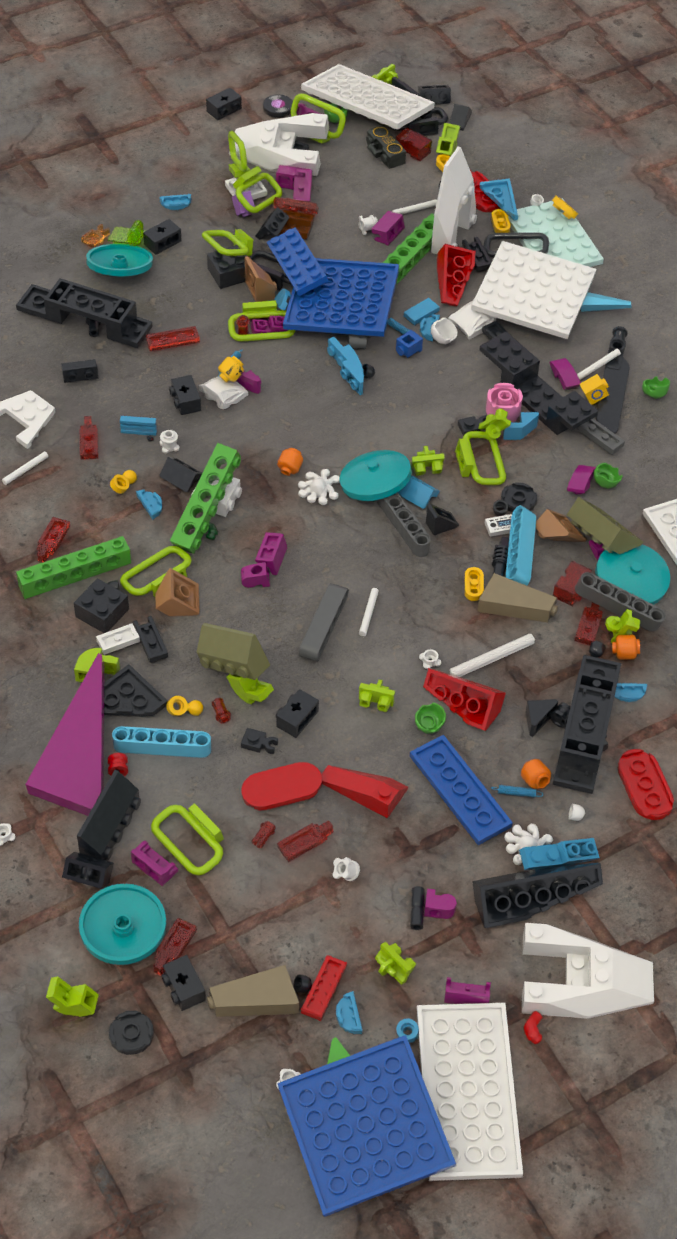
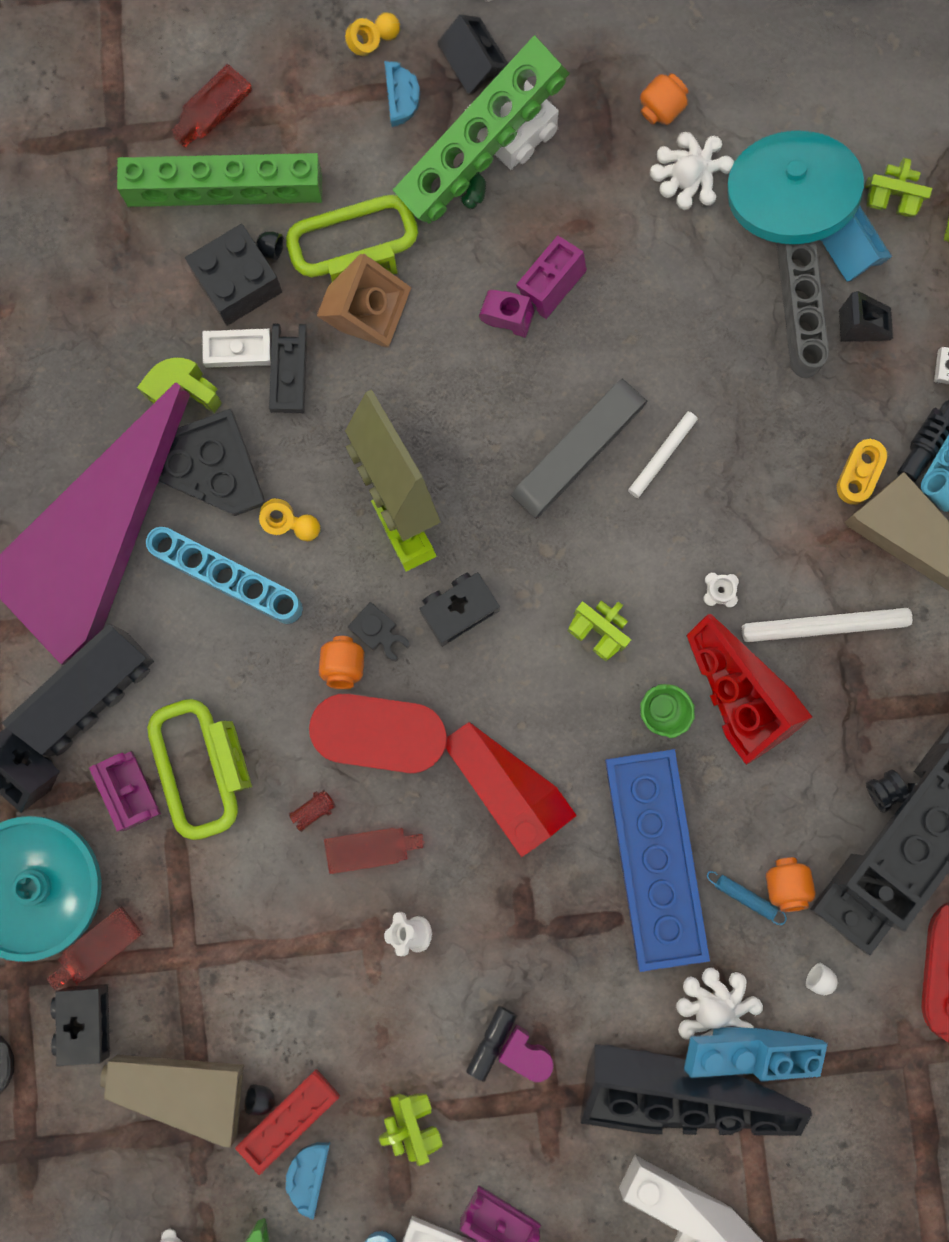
camera: 25 degrees right, 30 degrees up
(118, 762) = (140, 590): red wheel -> none
(222, 714) = (342, 557): clear red pin -> none
(245, 759) = (341, 662): none -> orange head
(539, 713) = (847, 773): black slope -> none

